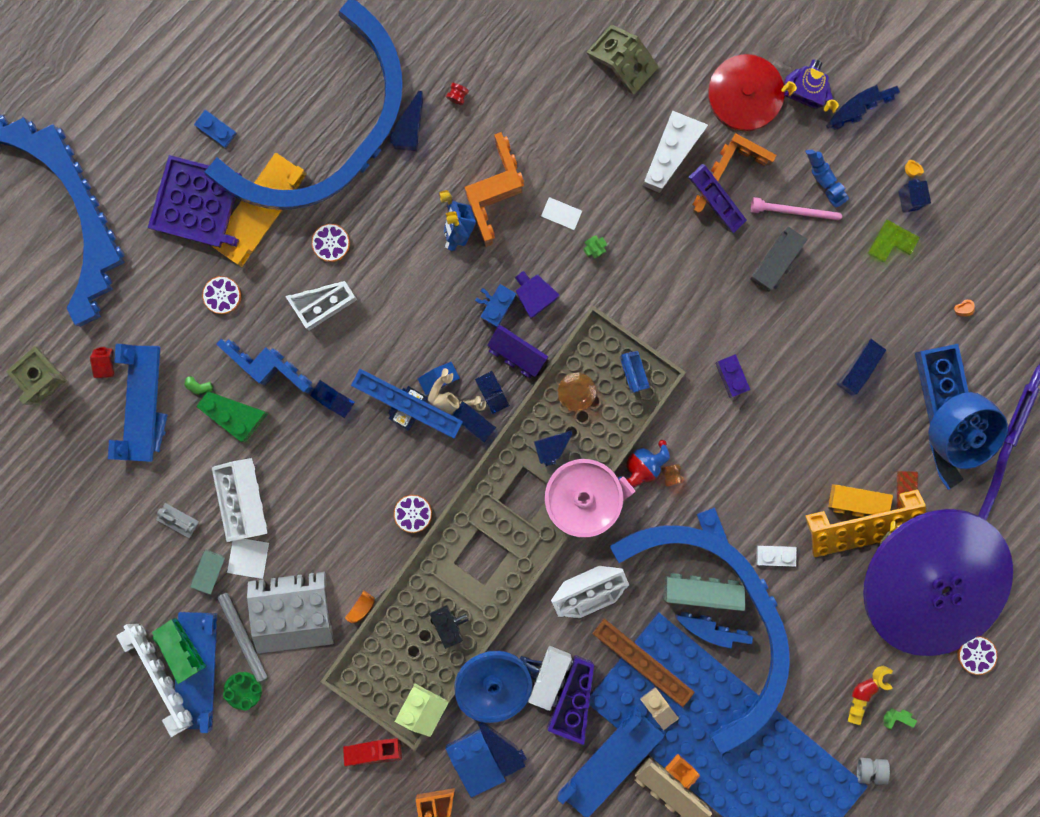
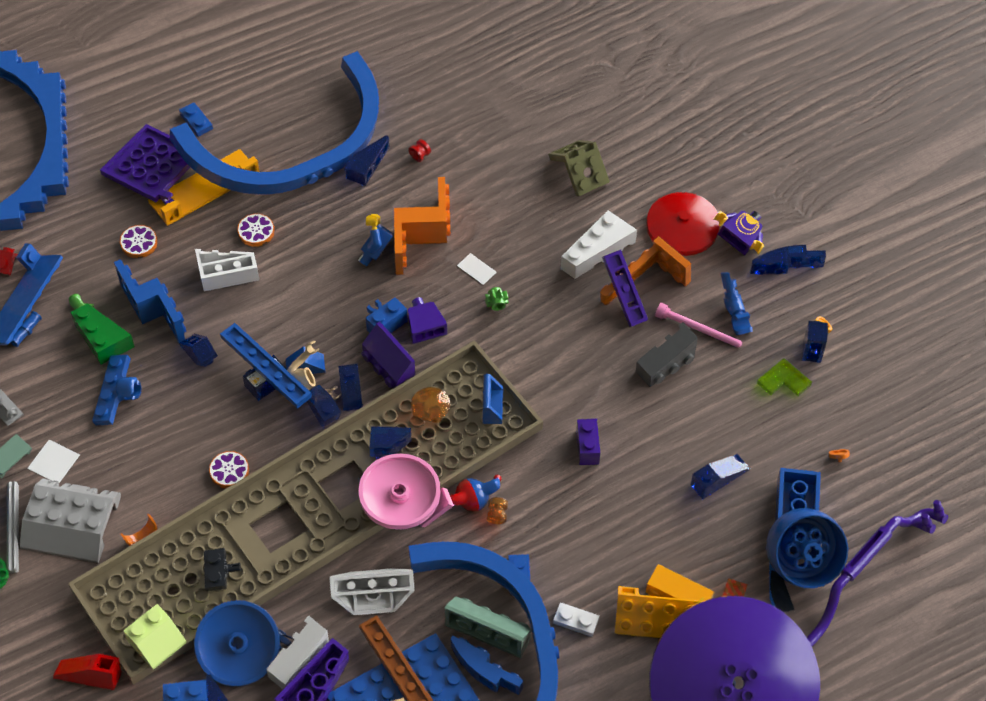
camera: 15 degrees right, 30 degrees down
(239, 499) = (71, 405): white slope -> none
(273, 467) = (115, 389): none -> blue plate

